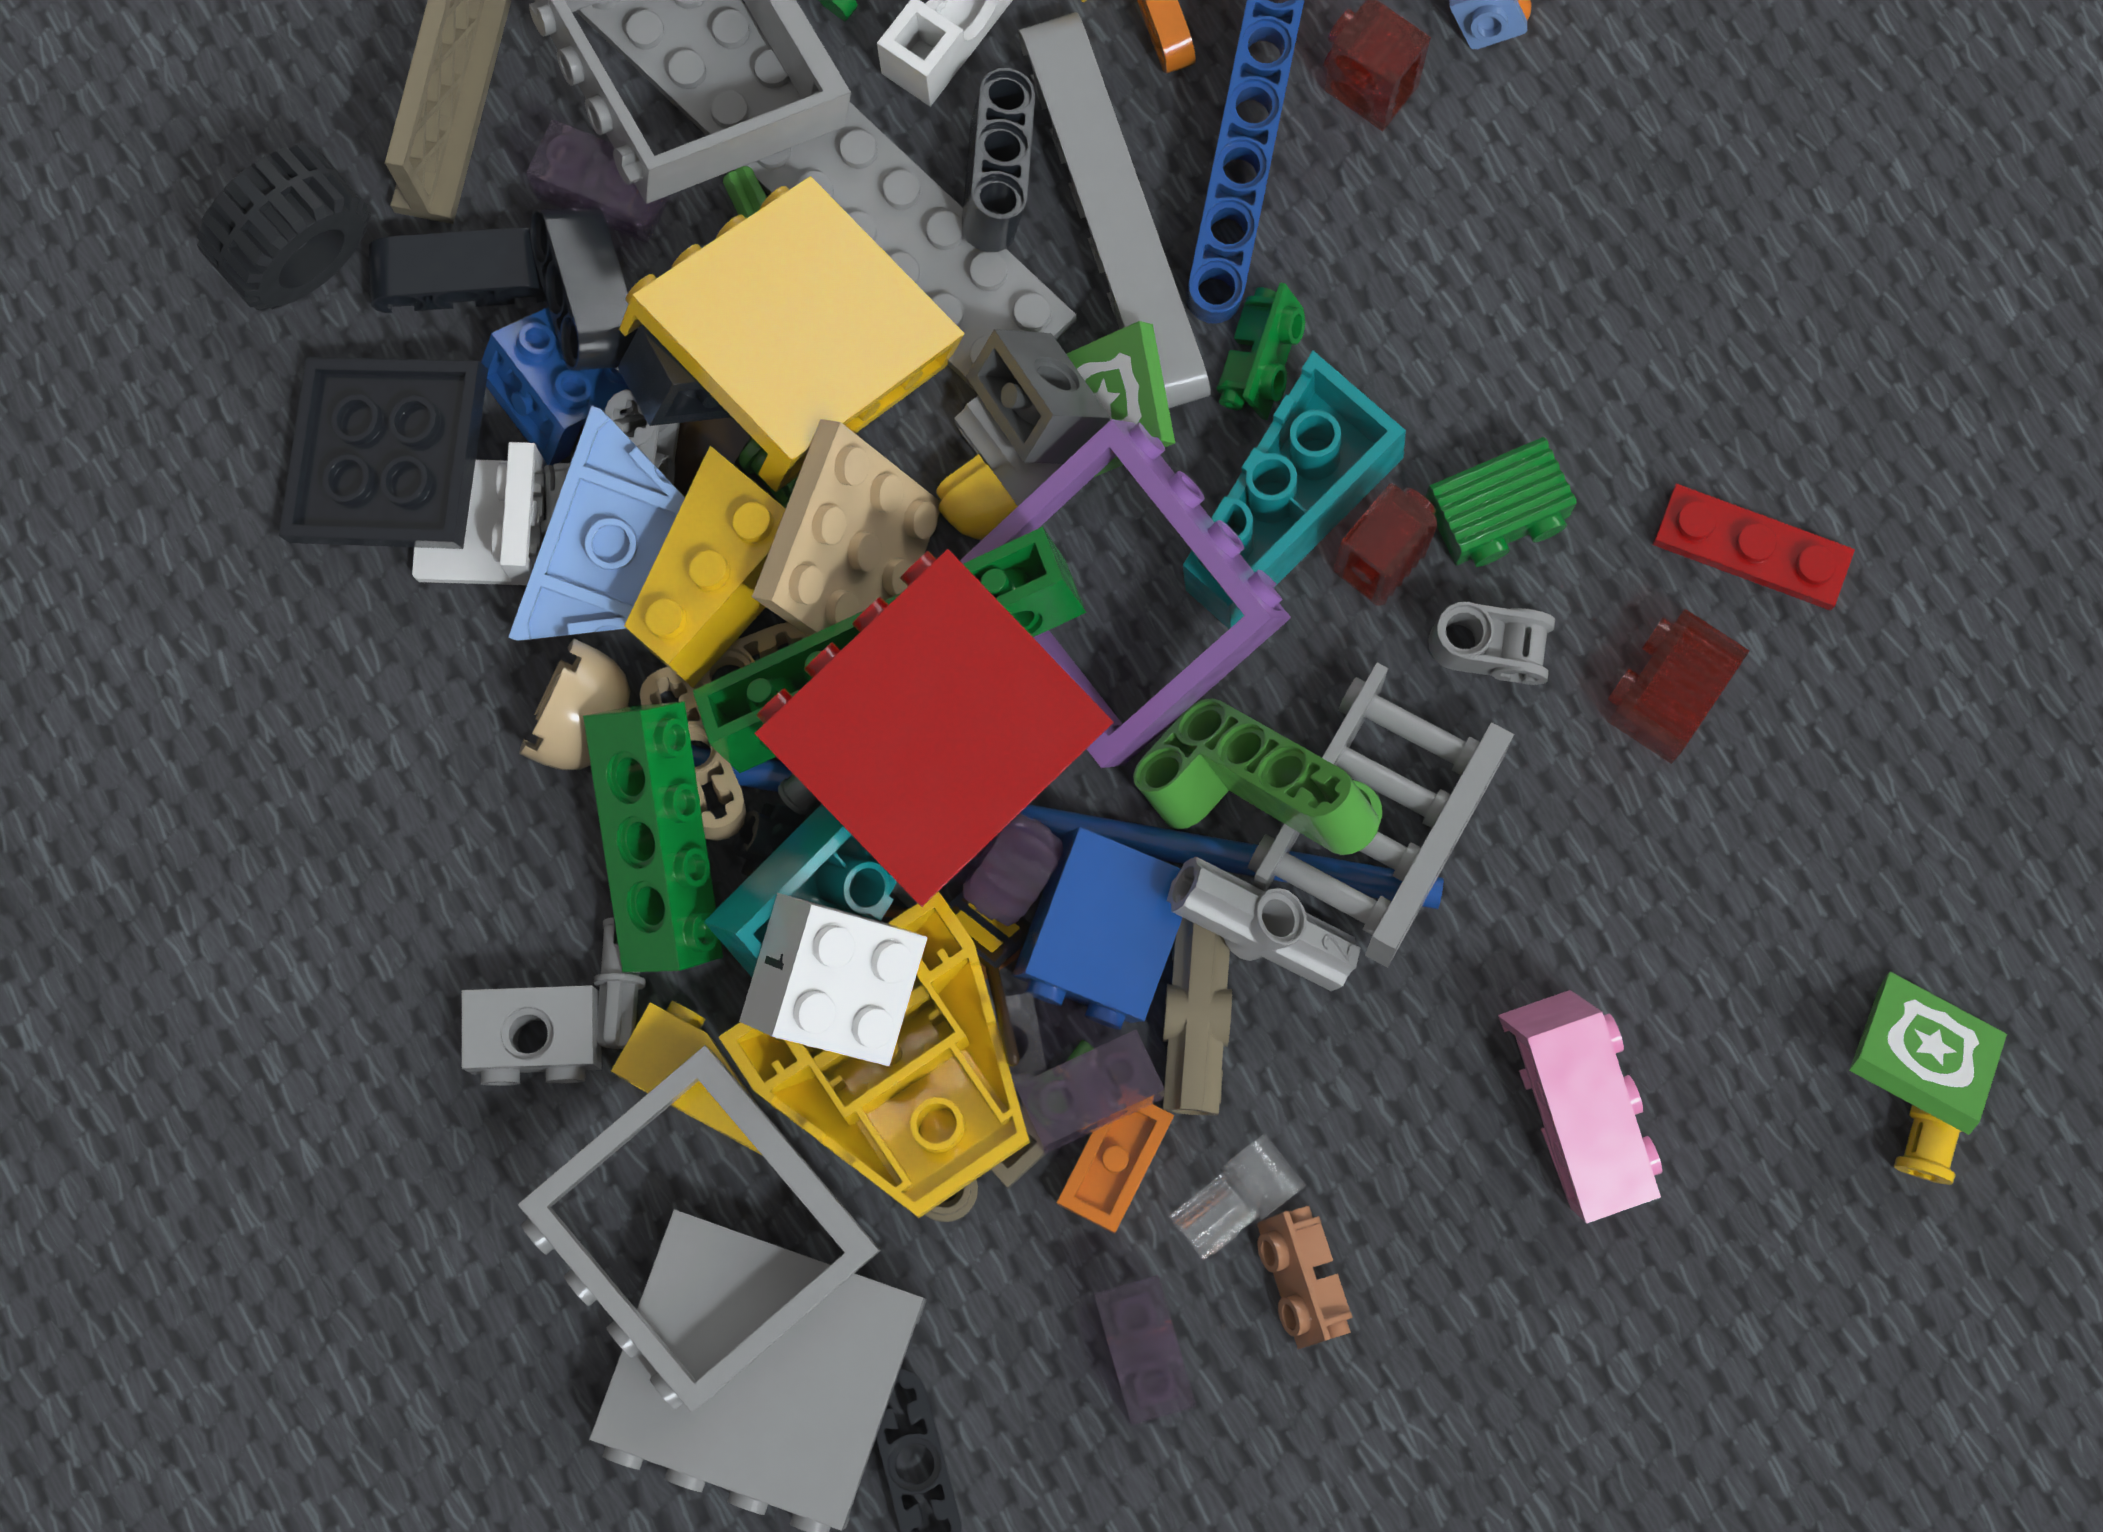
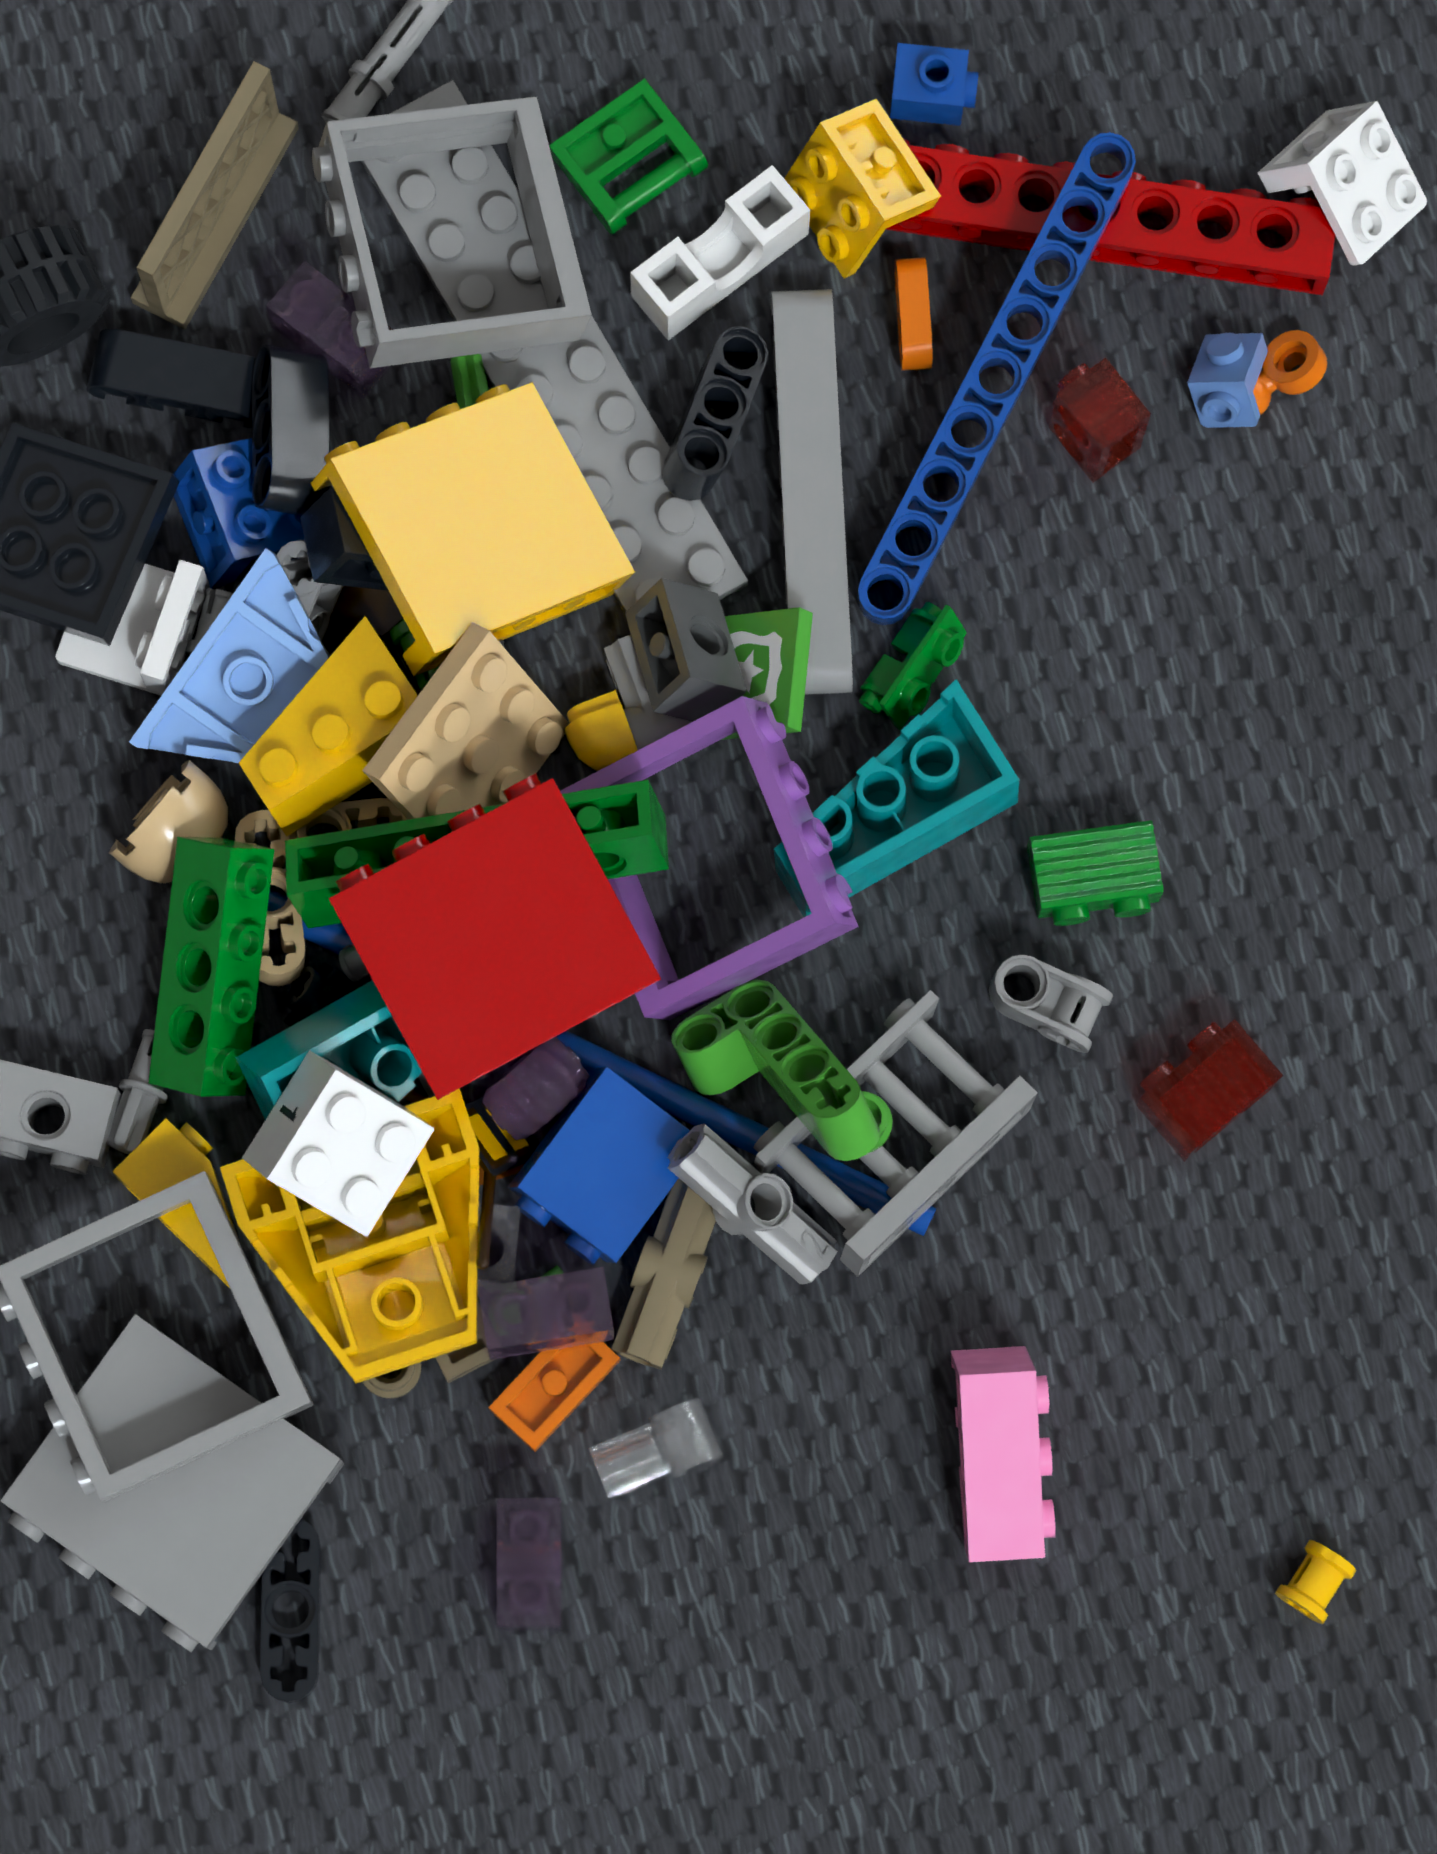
camera: 10 degrees right, 0 degrees up
(1308, 1307) = (693, 1569): nougat hinge -> none
(1386, 543) = (972, 880): clear red brick -> none
(1753, 547) = (1323, 978): red plate -> none
(1929, 1053) = (1336, 1496): bright green tile -> none

